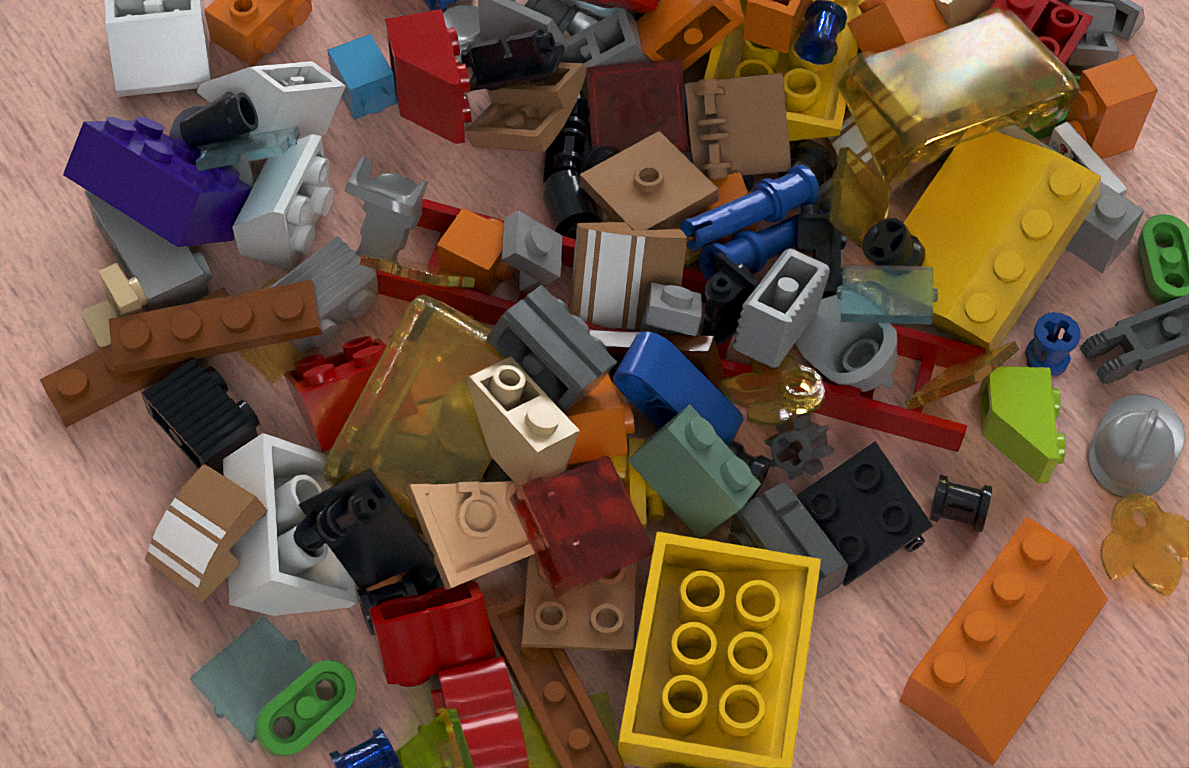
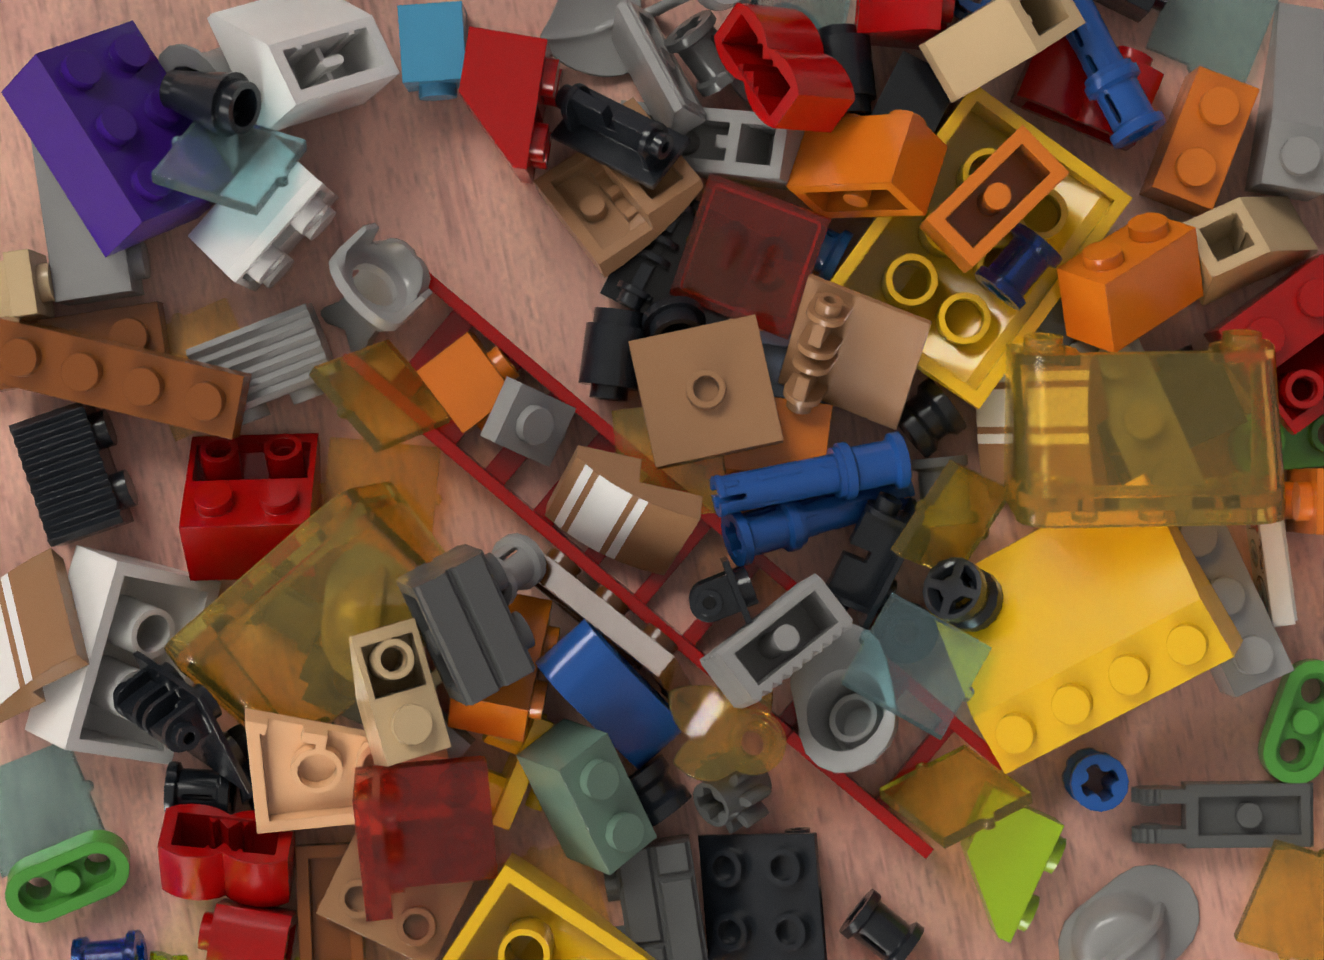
camera: 25 degrees right, 30 degrees up
(671, 310) = (648, 592): light grey bracket -> none

